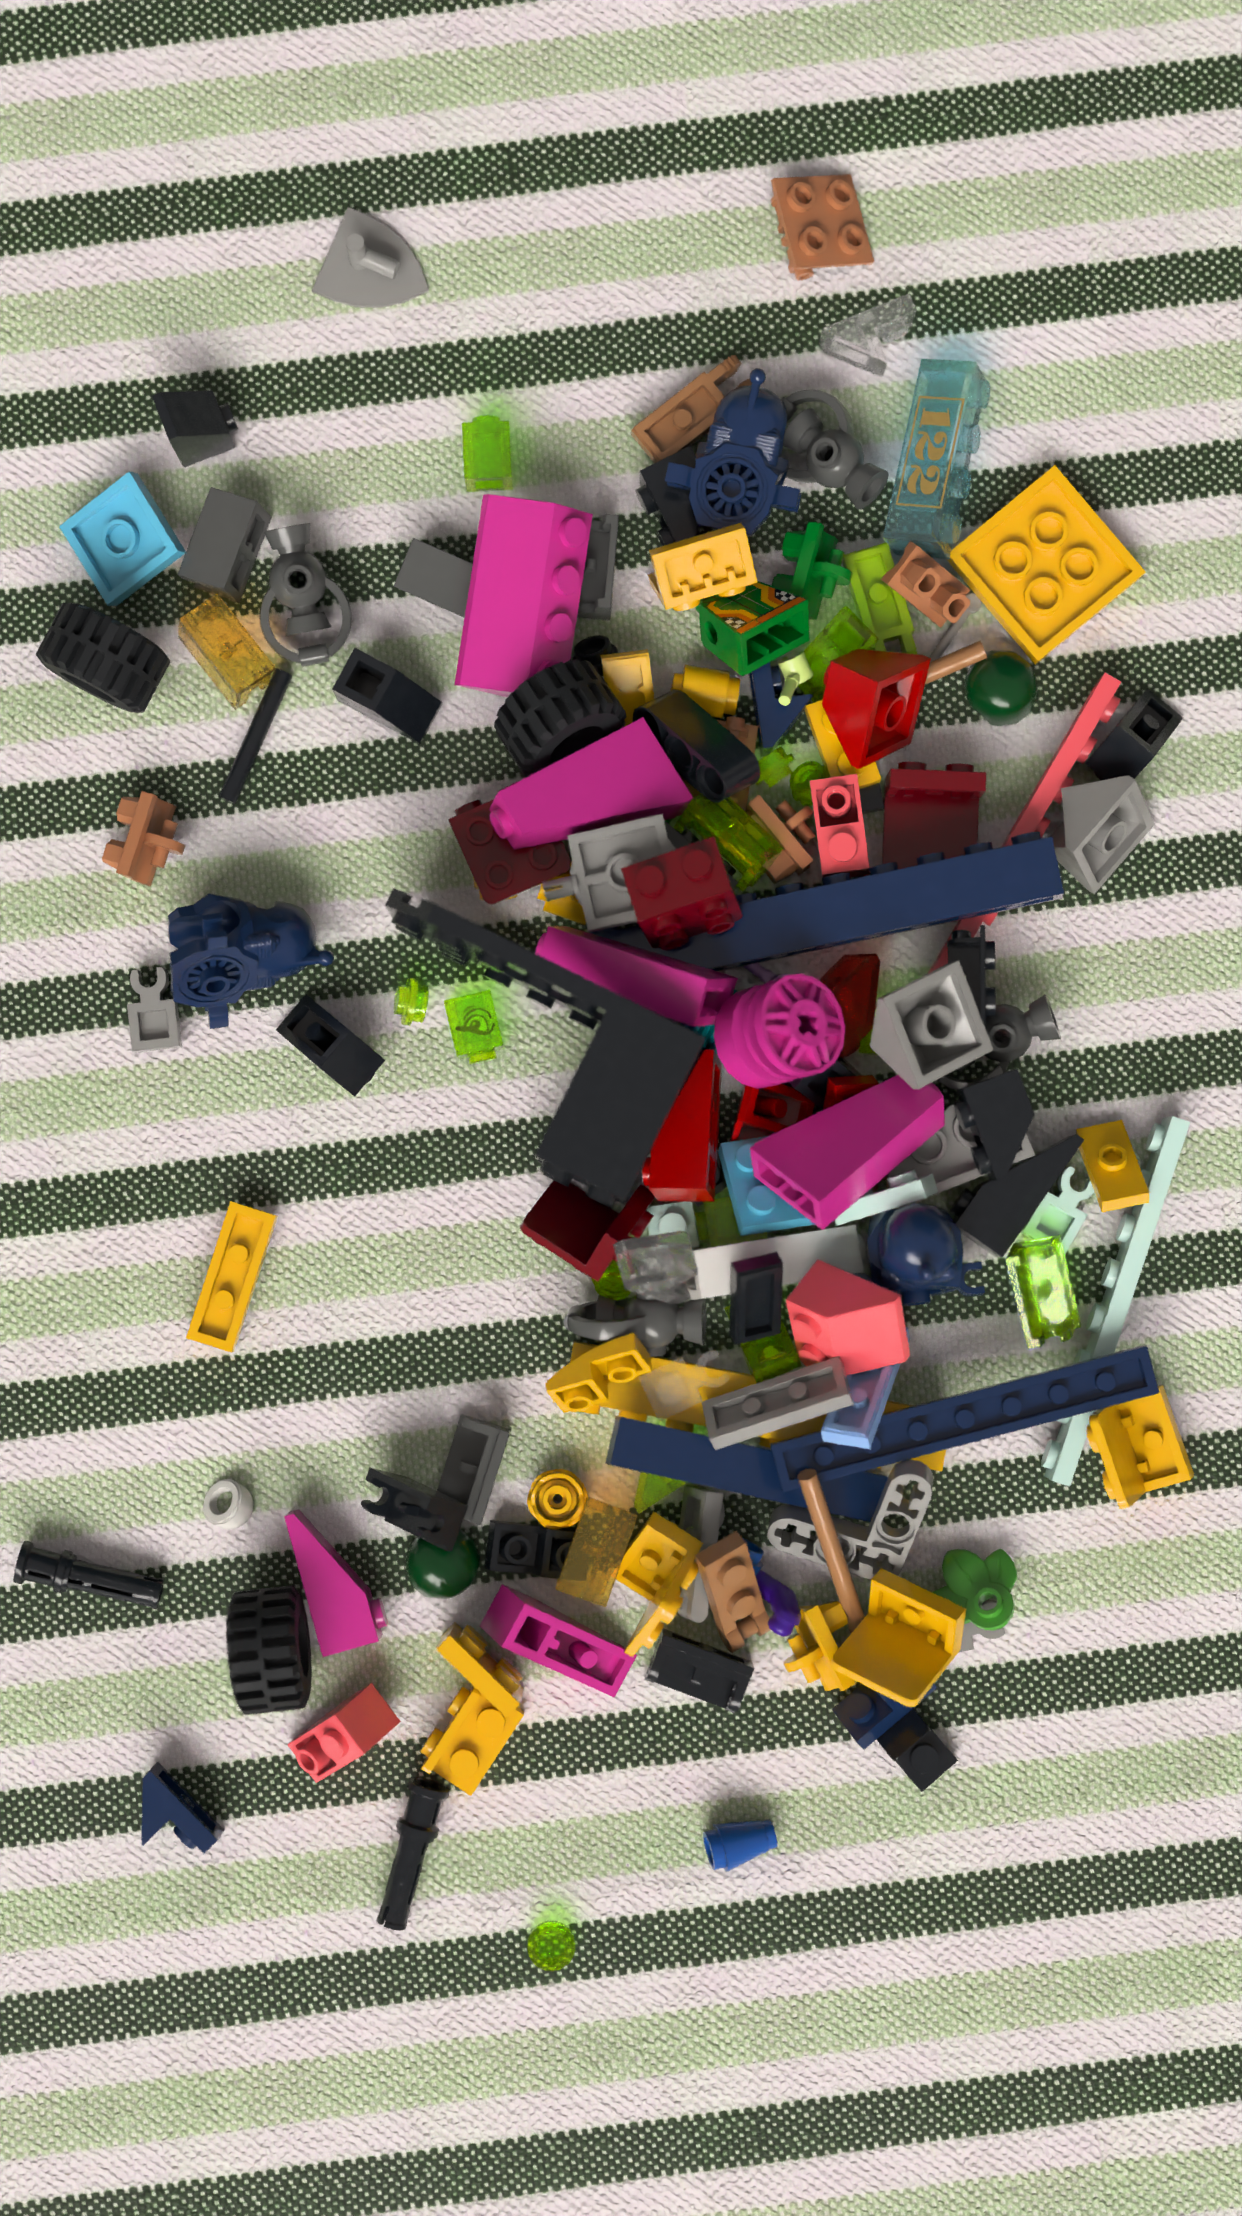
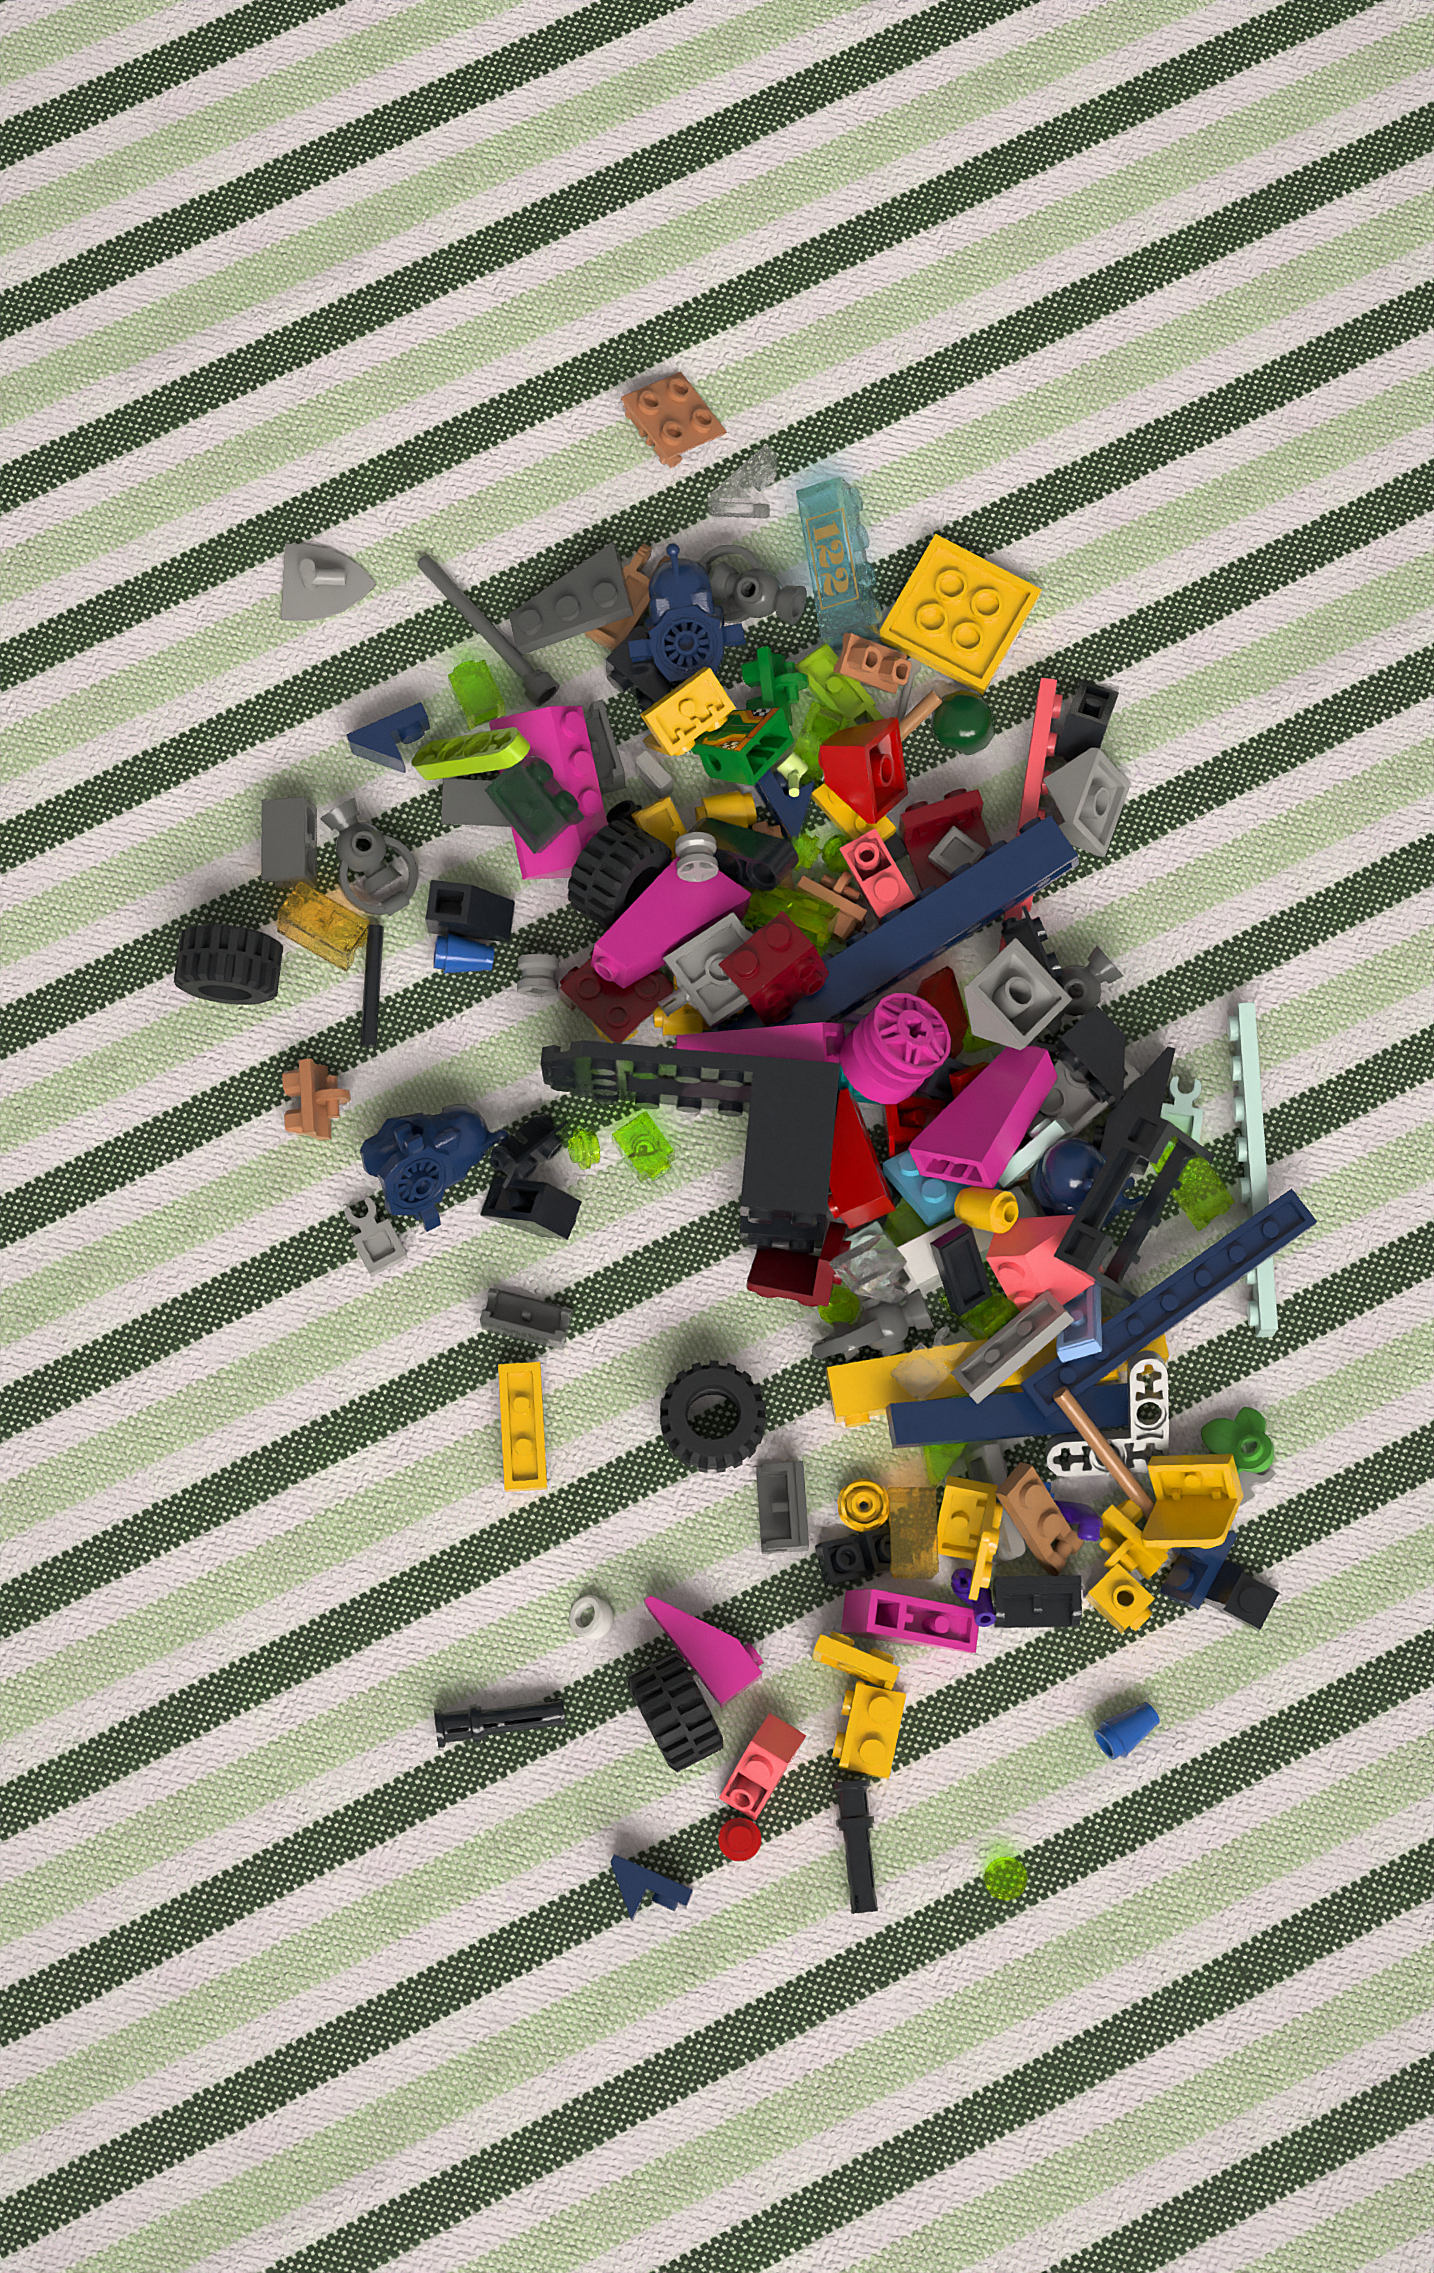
camera: 15 degrees left, 10 degrees down
(122, 539) = (204, 868): medium azure plate -> none
(195, 424) = (230, 756): black slope -> none
(281, 1160) = (526, 1318): none -> dark grey hinge
(291, 1798) = (739, 1839): none -> red plate
(334, 991) = (521, 1160): none -> black hinge
(362, 739) = (460, 954): none -> blue cone
(365, 465) = (379, 739): none -> dark blue slope
(392, 1356) = (720, 1381): none -> black tyre
(416, 1508) = (750, 1552): black hinge -> none
(434, 793) = (538, 975): none -> light grey wheel
(442, 1572) = (788, 1596): dark green hair -> none
(450, 523) = (470, 754): none -> lime beam
(496, 605) = (534, 802): none -> clear green bracket
(558, 471) = (539, 686): none -> dark grey piece
(586, 1377) = (848, 1387): yellow slope -> none
(626, 1623) = (982, 1607): none -> dark purple arm
(632, 395) = (574, 604): none -> dark grey wing
(643, 619) = (653, 775): none -> light grey tile
(647, 735) = (696, 857): none -> light grey wheel
(787, 1706) = (1121, 1599): none -> yellow brick
(807, 1246) = (986, 1209): none -> yellow brick
(935, 831) = (955, 851): none -> light grey tile
(1017, 1257) = (1083, 1243): none -> black hinge
(1112, 1166) = (1207, 1062): yellow plate -> none
(1138, 1447) = (1321, 1275): yellow bracket -> none

